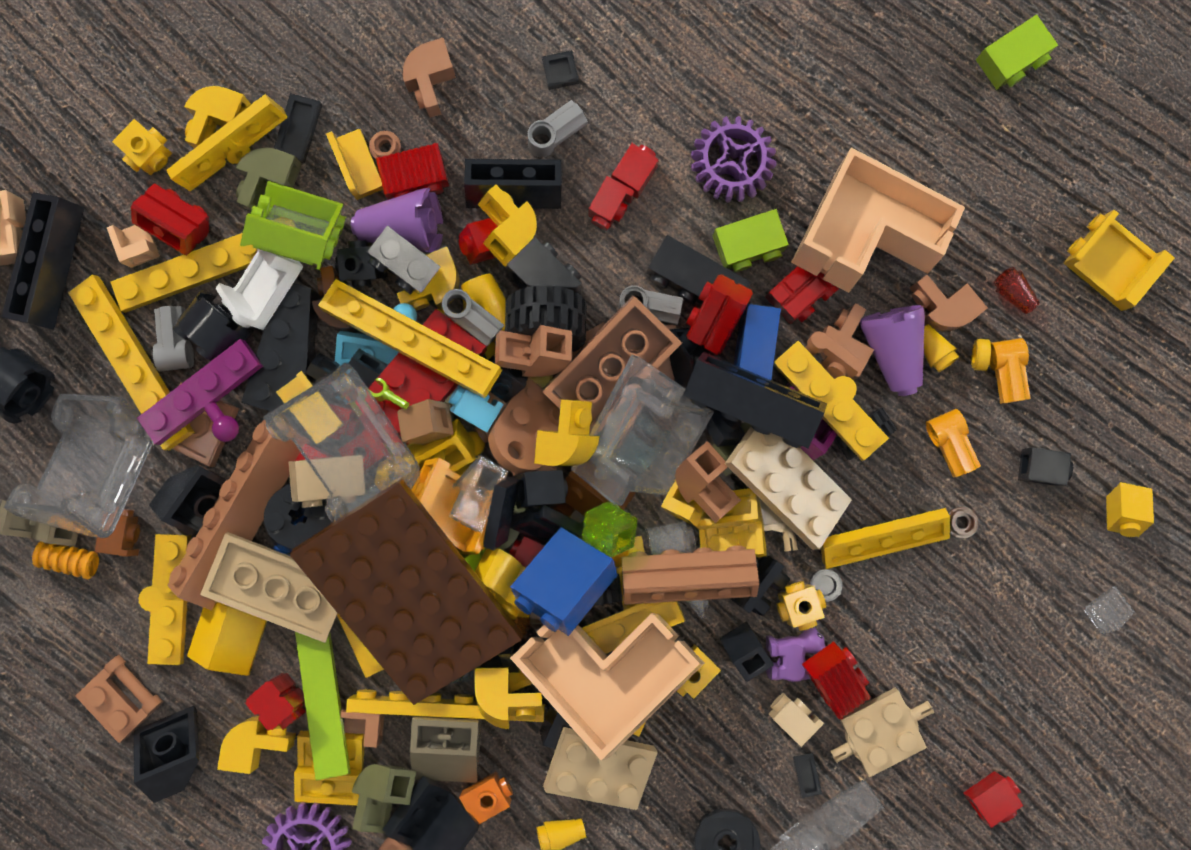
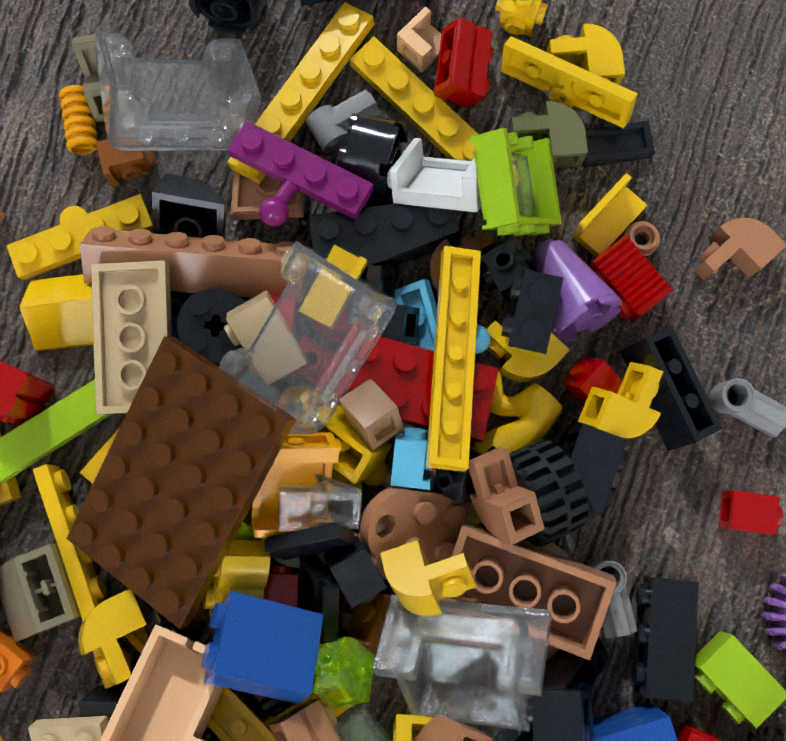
camera: 70 degrees right, 5 degrees down
(365, 723) = (31, 500): nougat panel -> none
(388, 395) = (382, 362): lime hand -> none
(474, 318) = (507, 414): light grey piece -> none
(610, 203) = (700, 501): red brick -> none
(719, 313) = (641, 684): red brick -> none

